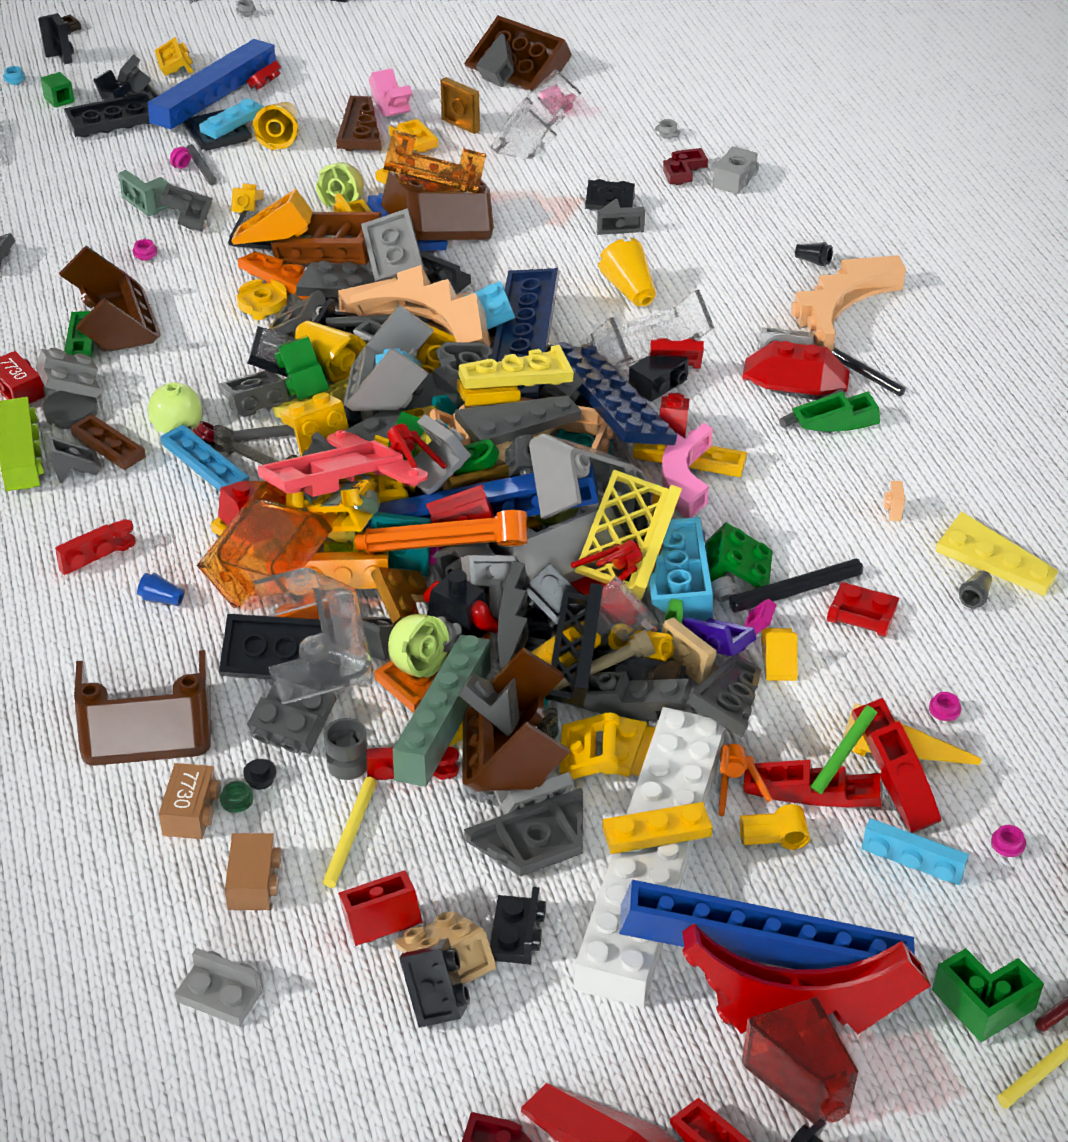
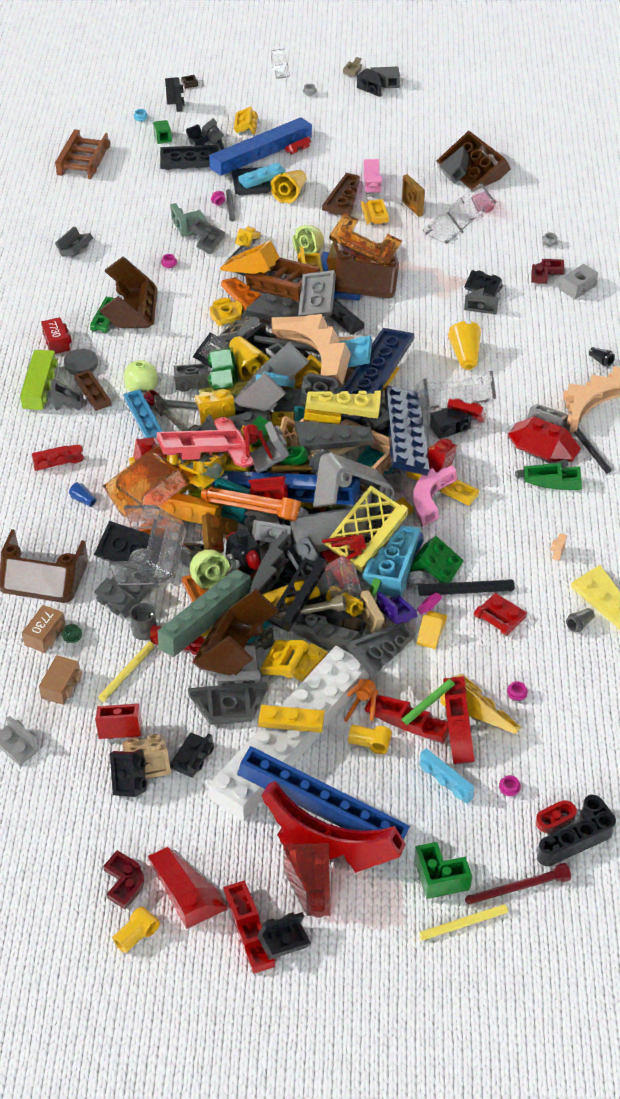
camera: 20 degrees right, 5 degrees up
(68, 372) = (85, 339): light grey plate -> none
(260, 773) = (91, 623): black plate -> none
(497, 708) = (233, 621): dark grey slope -> none

